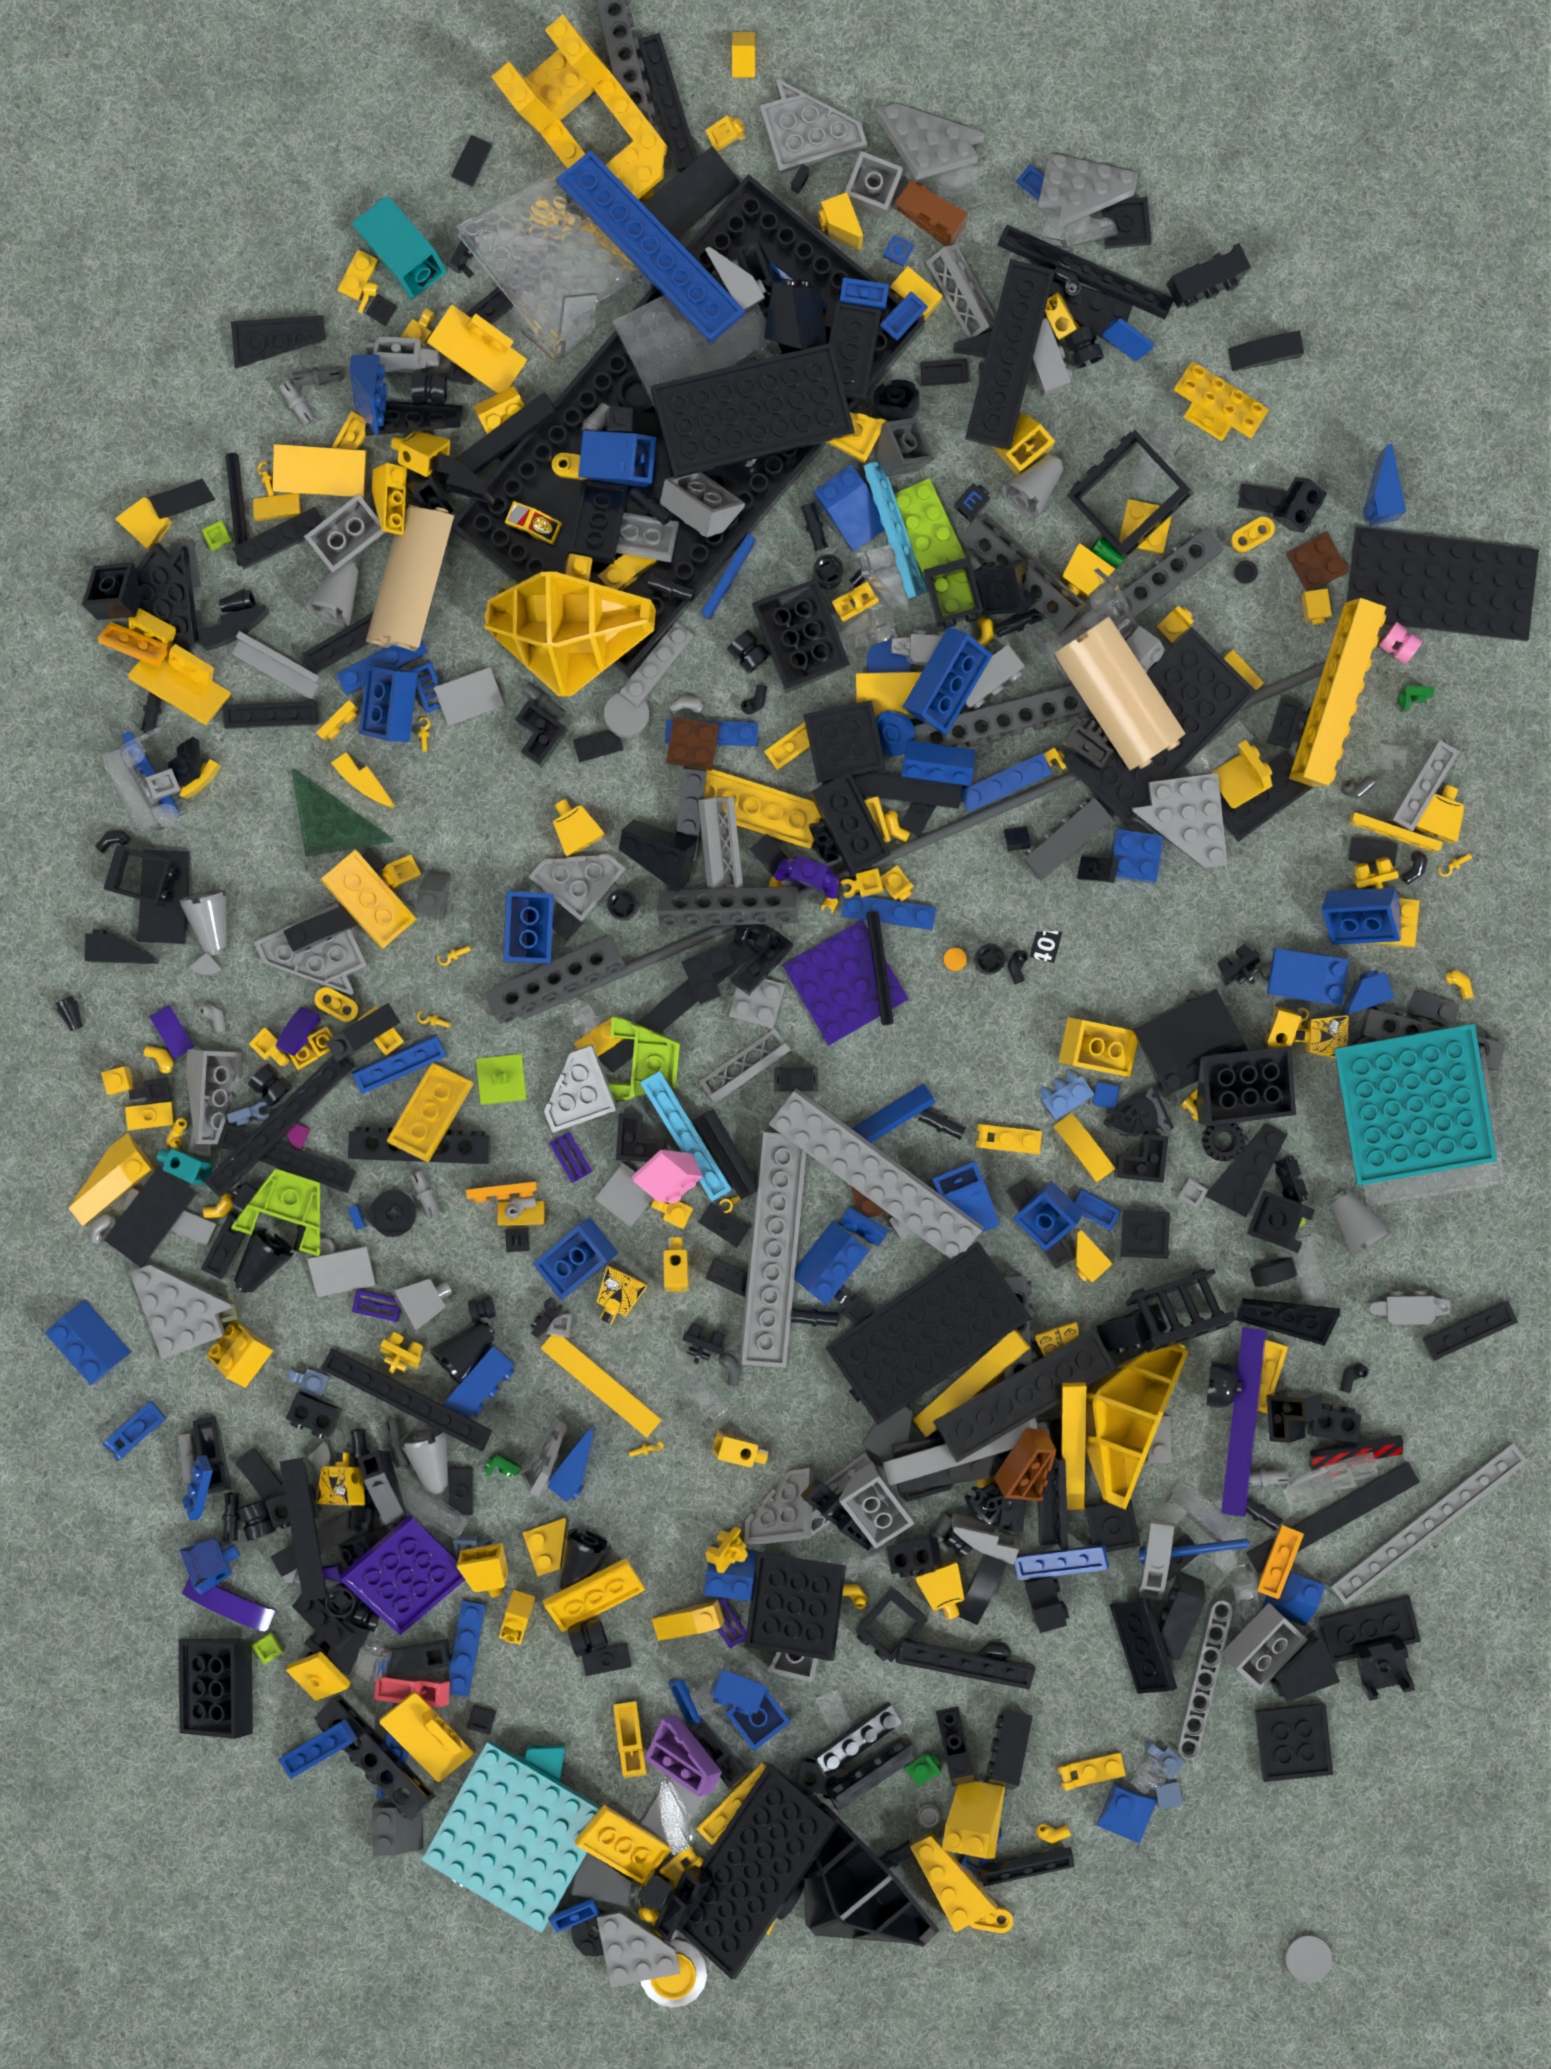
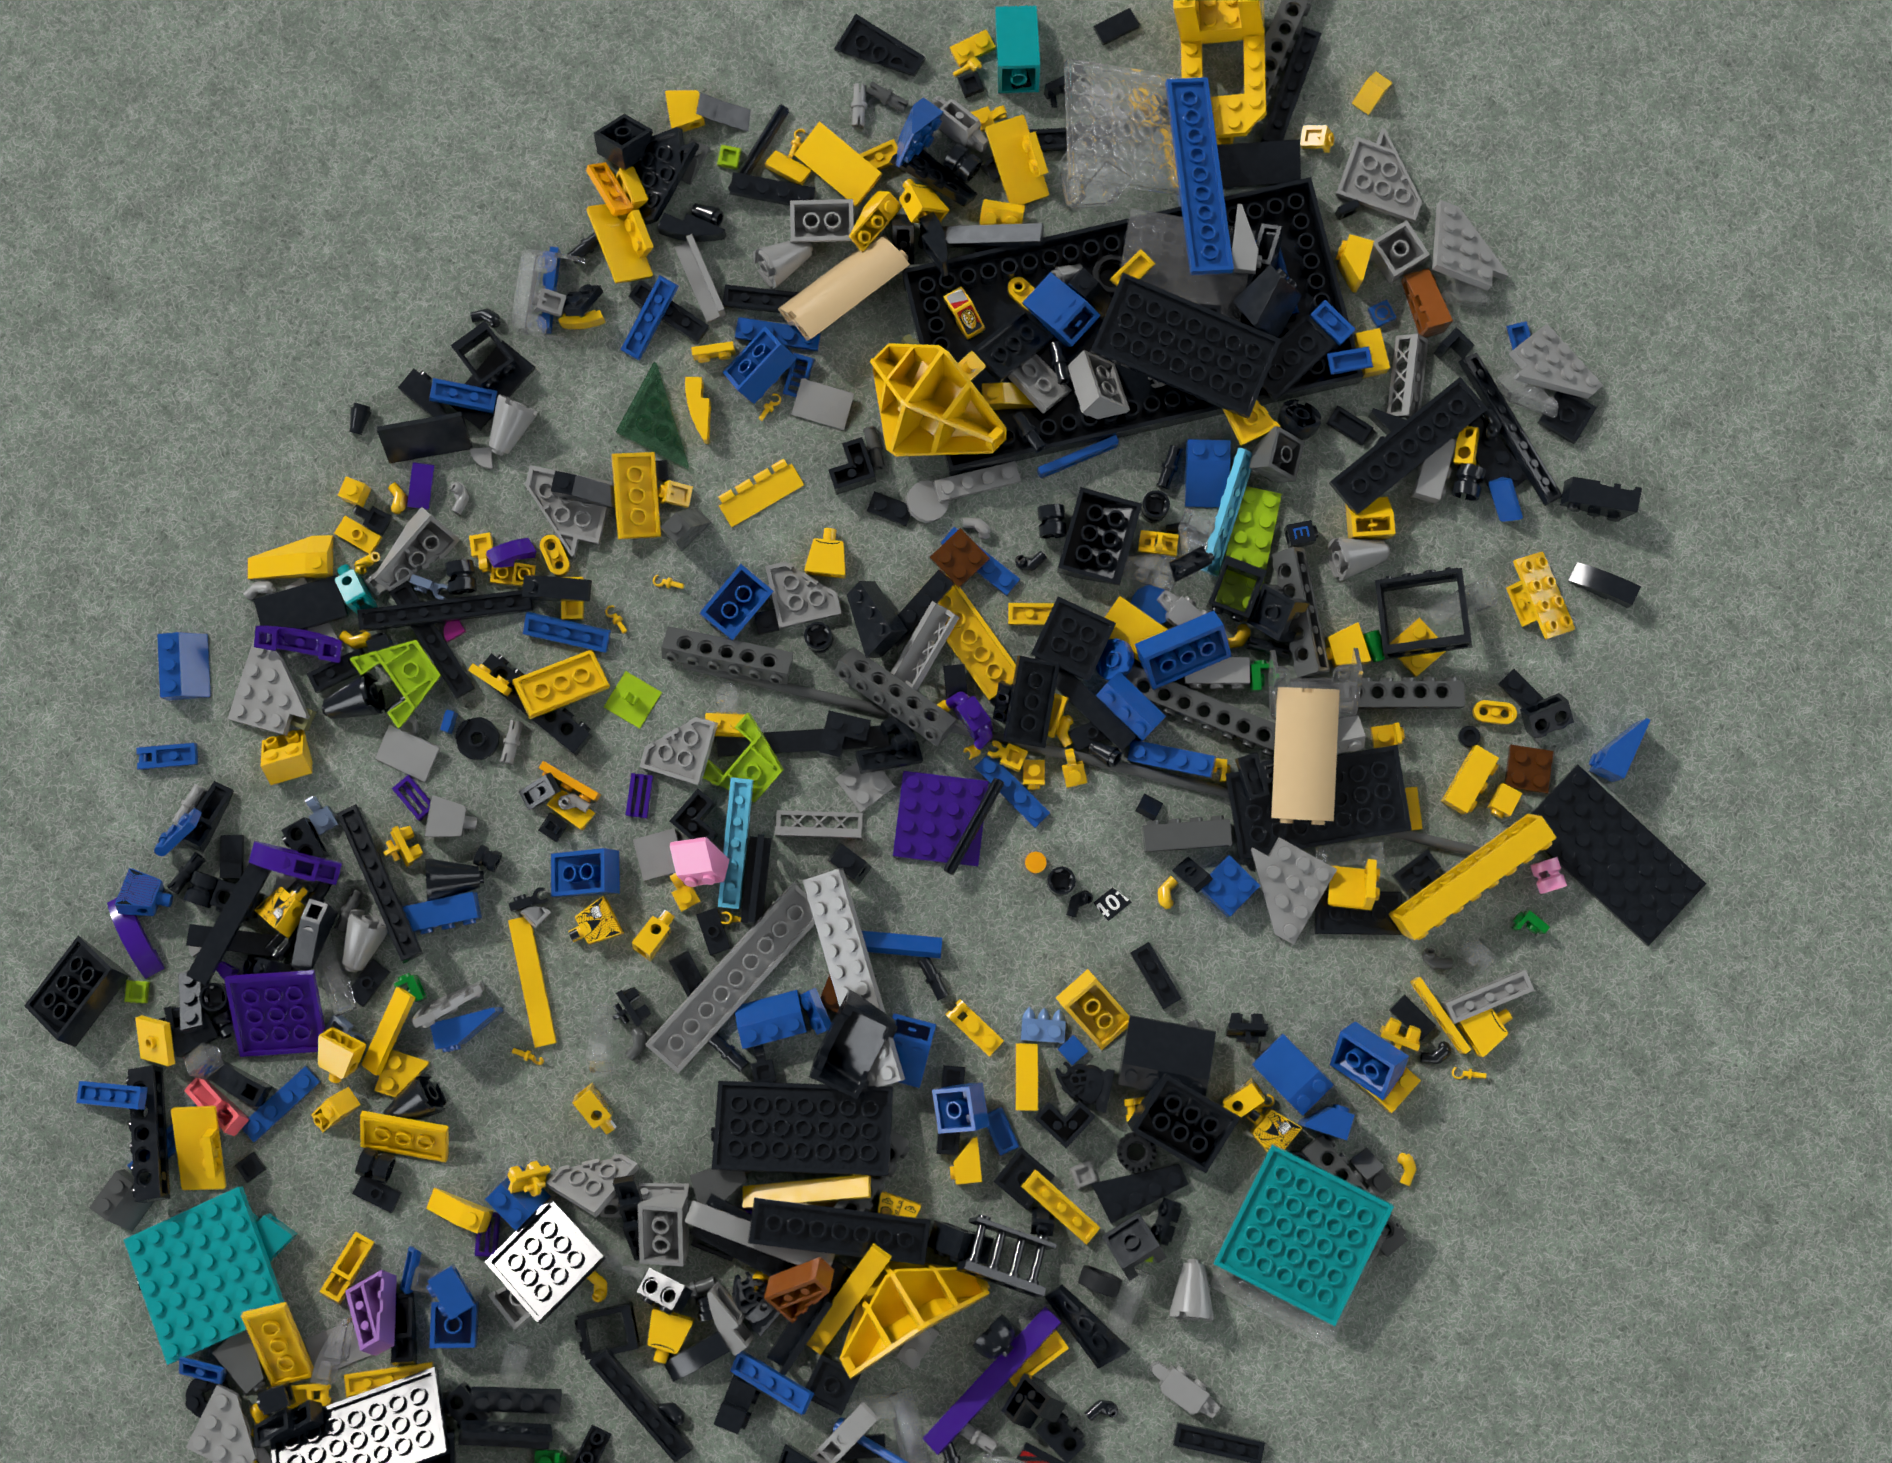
camera: 40 degrees right, 5 degrees down
(143, 987) = (424, 437): none -> black tile
(148, 925) = (463, 395): none -> blue plate
(172, 1246) = (299, 641): none -> dark purple slope
(258, 733) = (649, 317): none -> blue tile
(321, 1438) = (294, 863): none -> dark purple slope
(357, 1153) = (484, 673): none -> yellow plate
(477, 814) = (757, 497): none -> yellow windscreen
(483, 1218) = (539, 791): none -> plate
(511, 1518) = (388, 1031): none -> yellow tile
(655, 372) = (1135, 267): none -> yellow tile
(897, 599) = (1190, 563): none -> black hinge
(917, 1232) = (852, 1045): none -> black windscreen
(929, 856) = (1073, 771): none -> yellow plate
(946, 820) = (1105, 753): none -> black cone
(984, 228) = (1456, 341): none -> black panel
(1026, 656) = (1257, 679): none -> green bracket
(1085, 904) = (1164, 893): none -> yellow arm
(1129, 979) = (1155, 975): none -> black plate
(1188, 1258) = (1042, 1222): none -> black bracket
(1194, 1235) = (1060, 1207): none -> yellow plate
(1275, 609) = (1470, 780): none -> yellow brick

